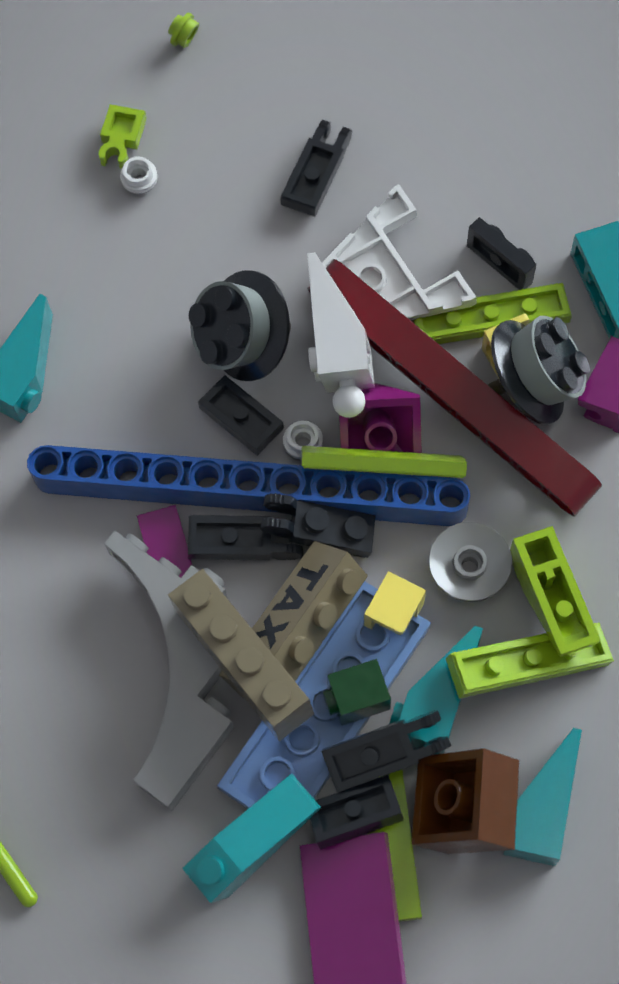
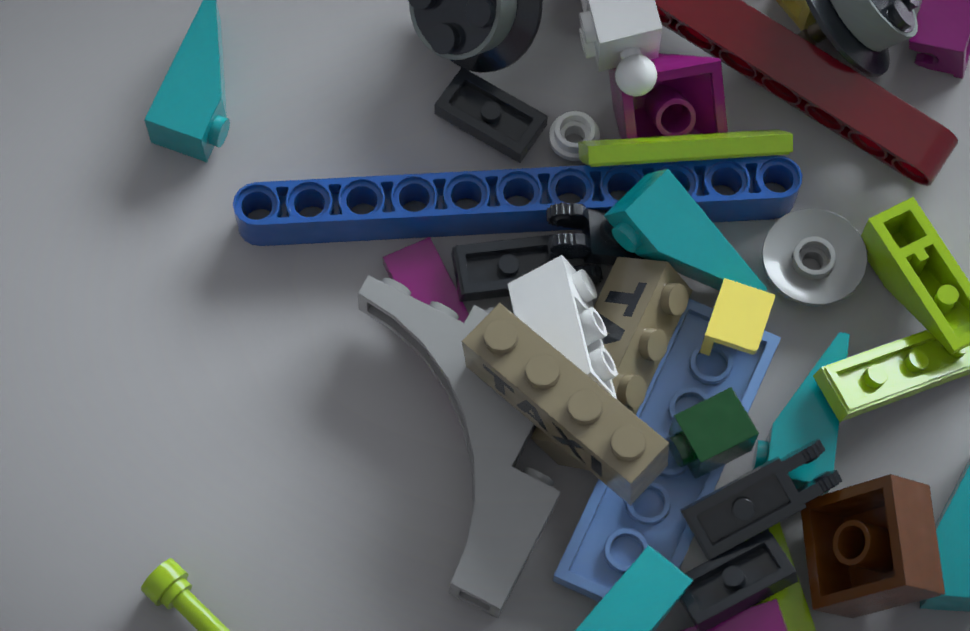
camera: 15 degrees left, 0 degrees up
(258, 584) = (560, 309): none -> white slope
(354, 525) = (667, 225): none -> teal slope

